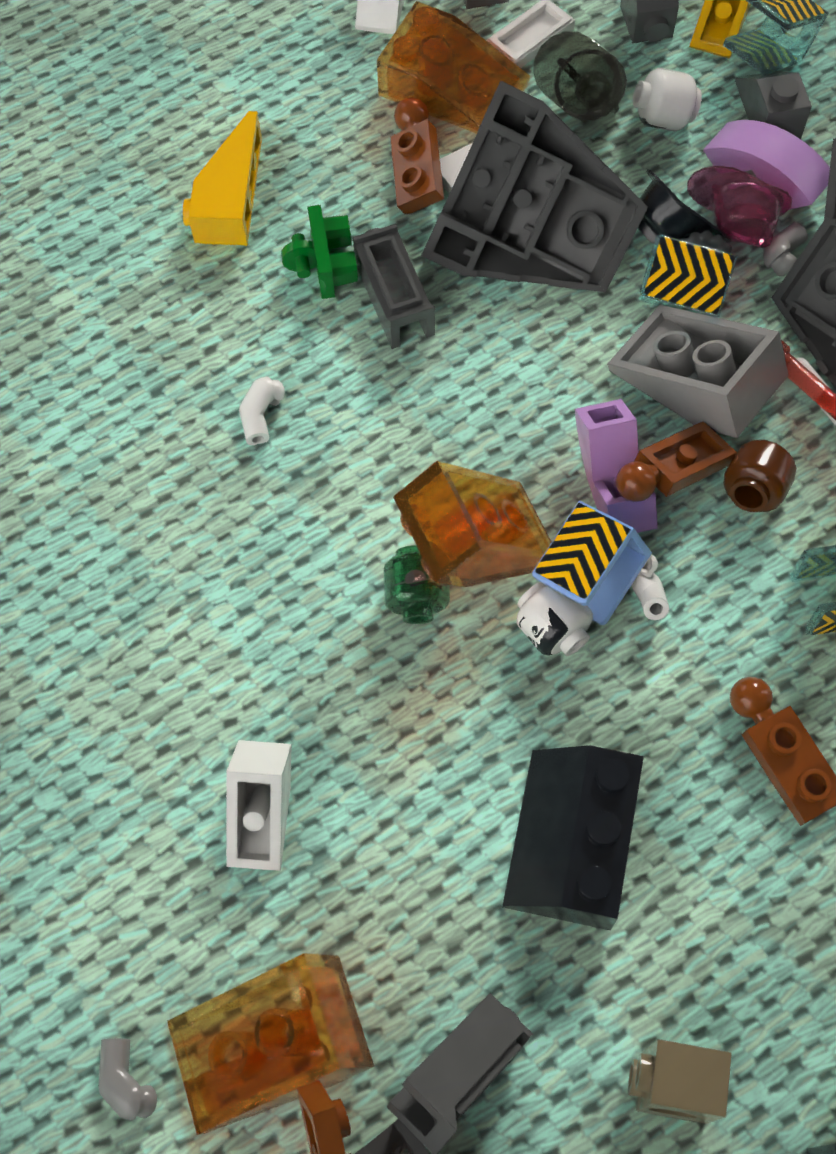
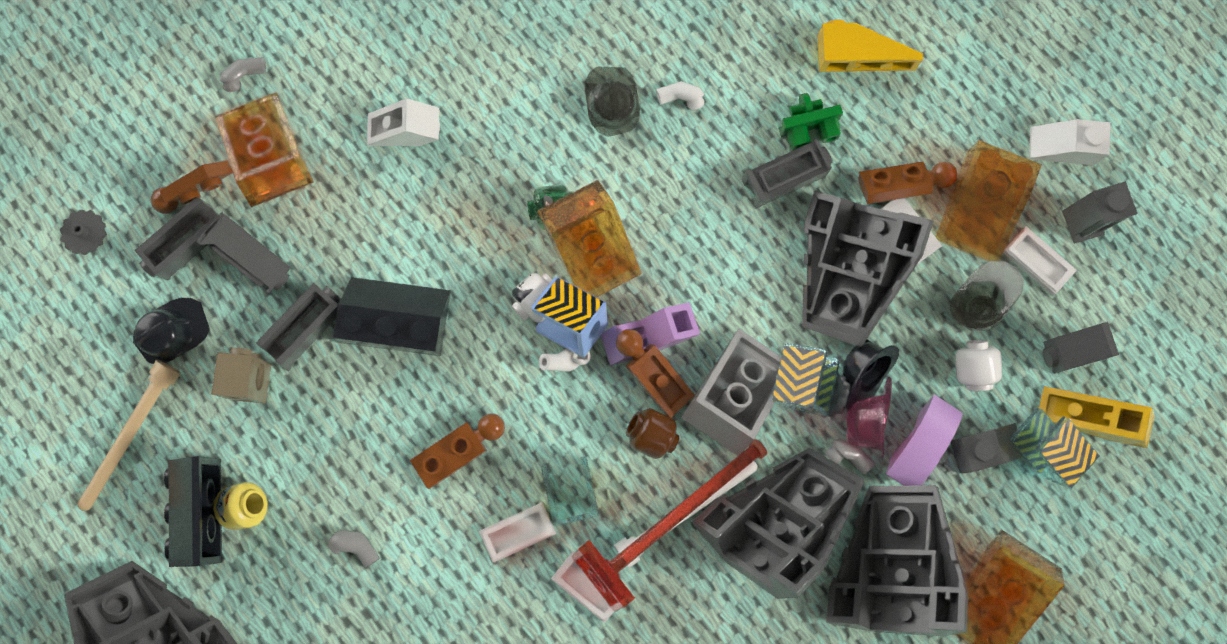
camera: 80 degrees right, 15 degrees up
(253, 502) = (612, 100): none -> clear smoke piece
(587, 984) = (300, 325): none -> dark grey window

